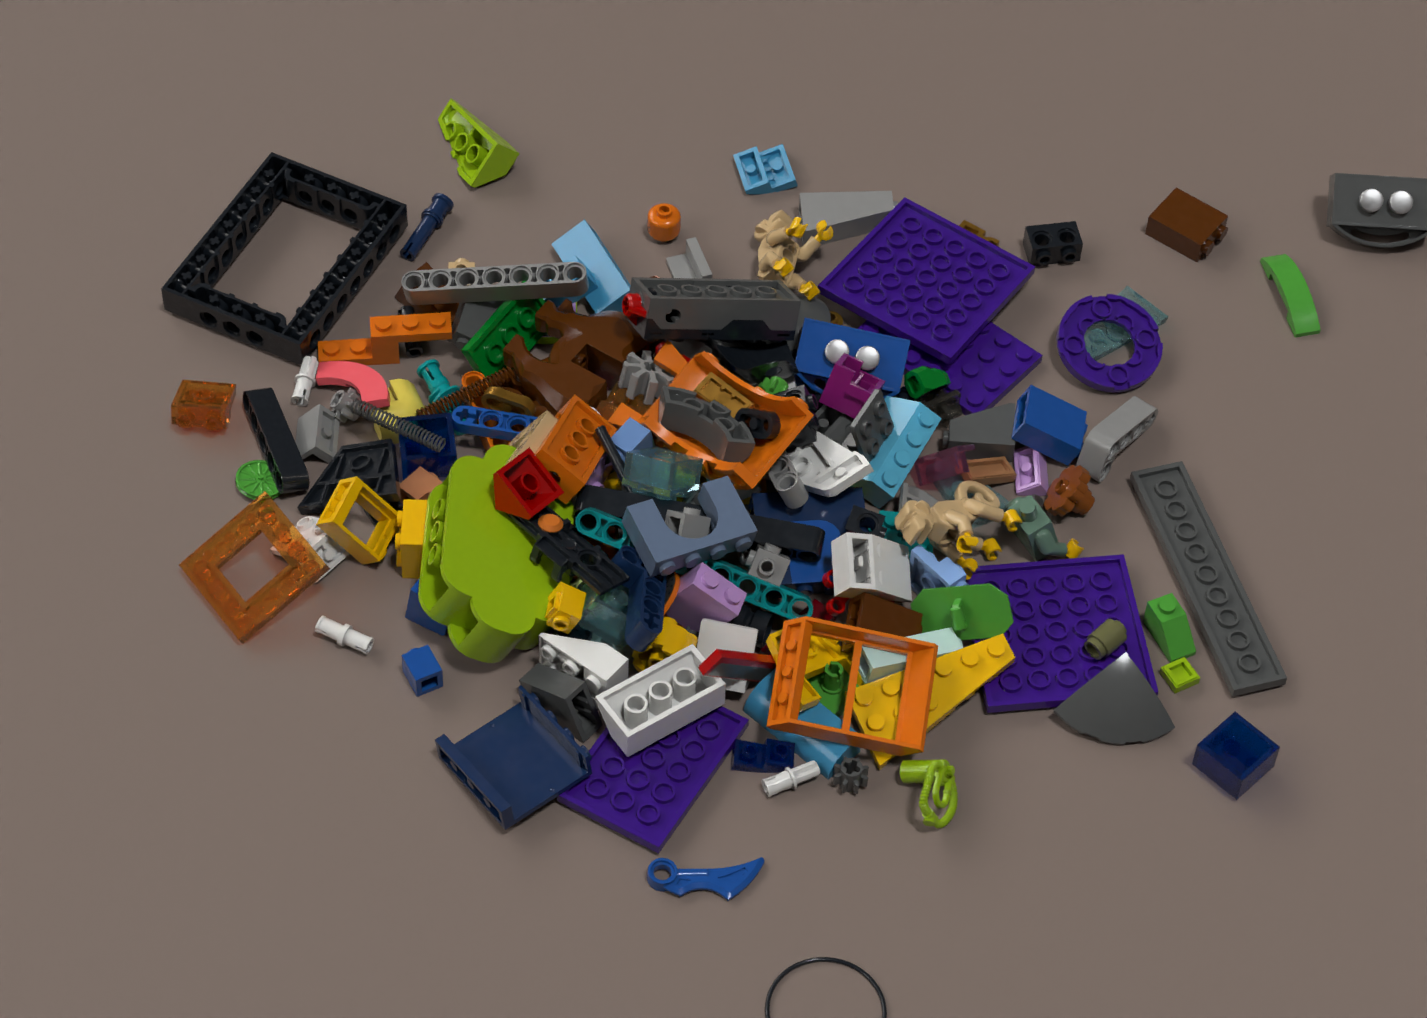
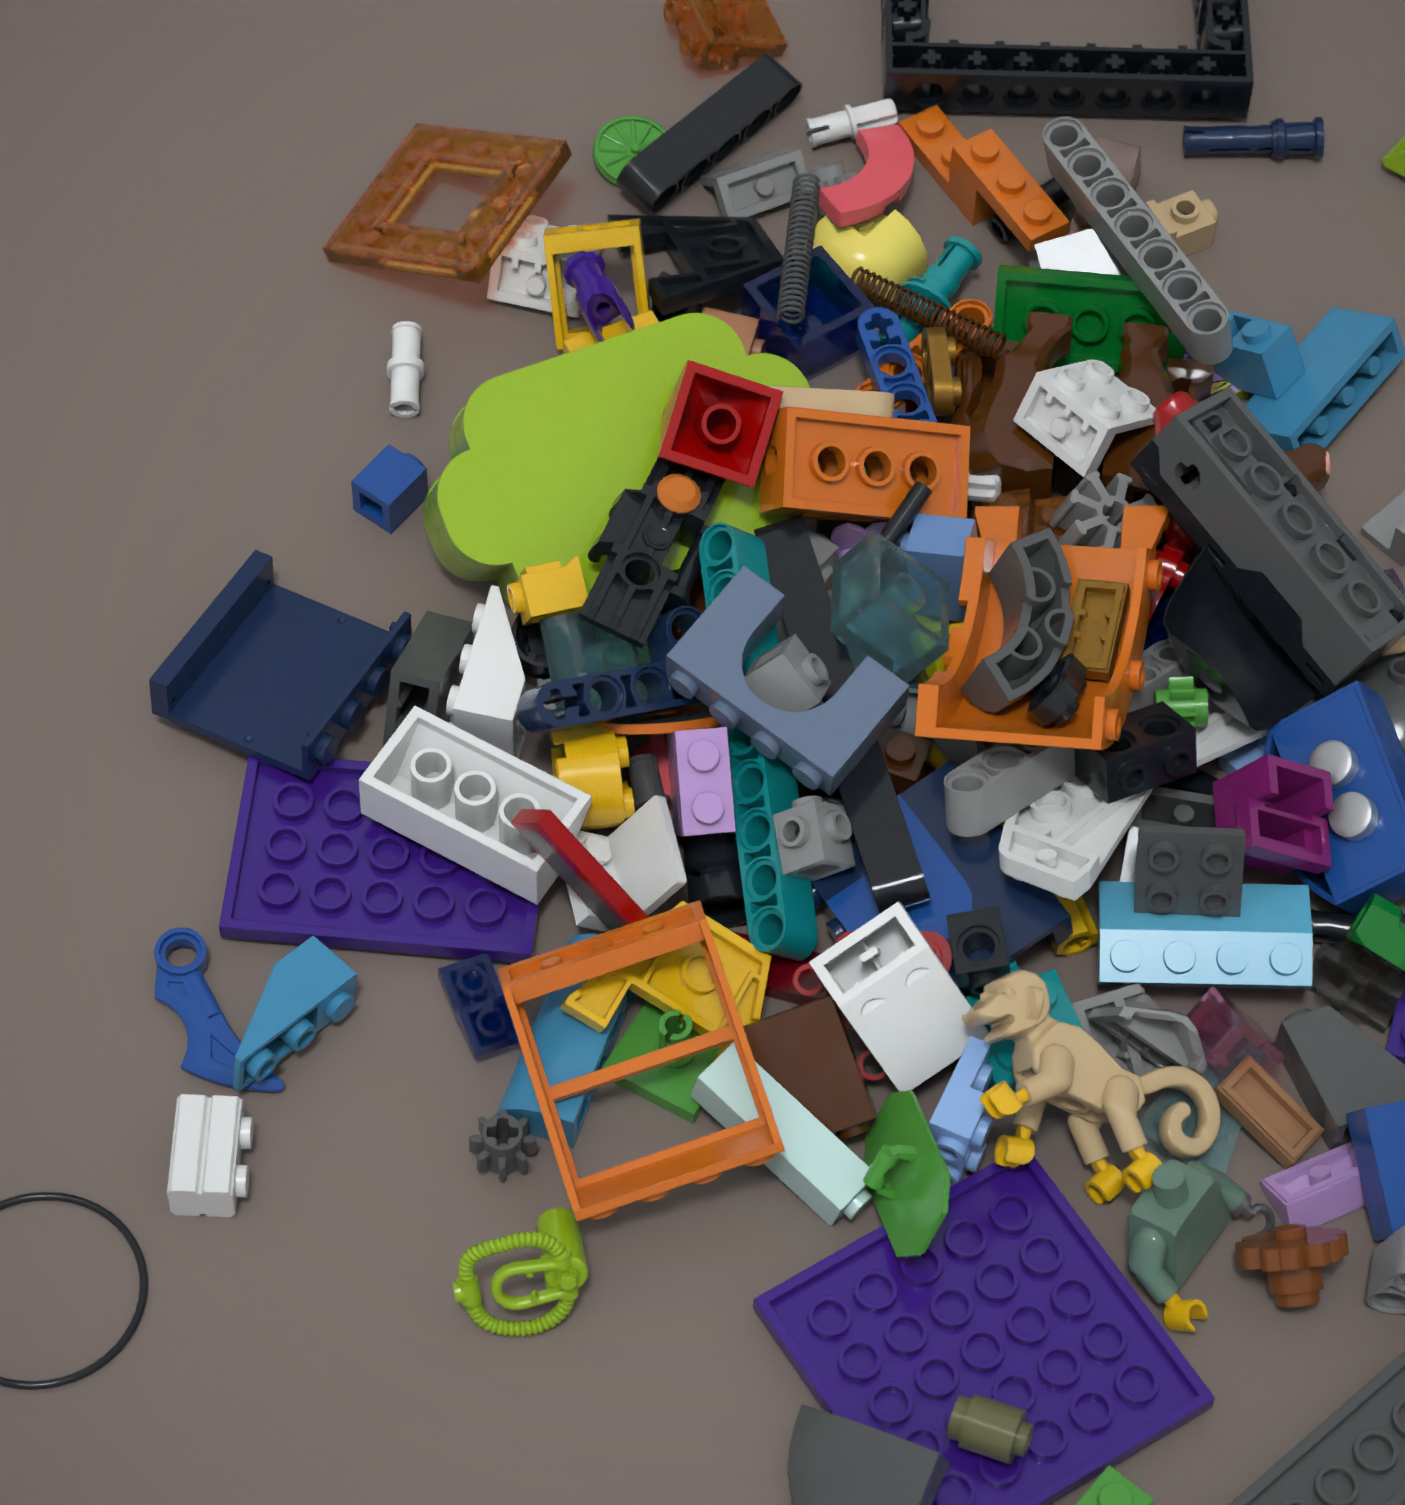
camera: 65 degrees right, 5 degrees up
(385, 515) = (595, 292): none -> dark purple piece
(589, 350) = (1080, 411): none -> white bracket
(724, 832) = (298, 1000): none -> dark azure slope
(790, 778) = (454, 1061): white axle -> none
(792, 903) = (207, 1156): none -> white brick
(939, 484) = (1157, 1034): none -> light grey slope
(955, 680) = (747, 1209): yellow wing -> none

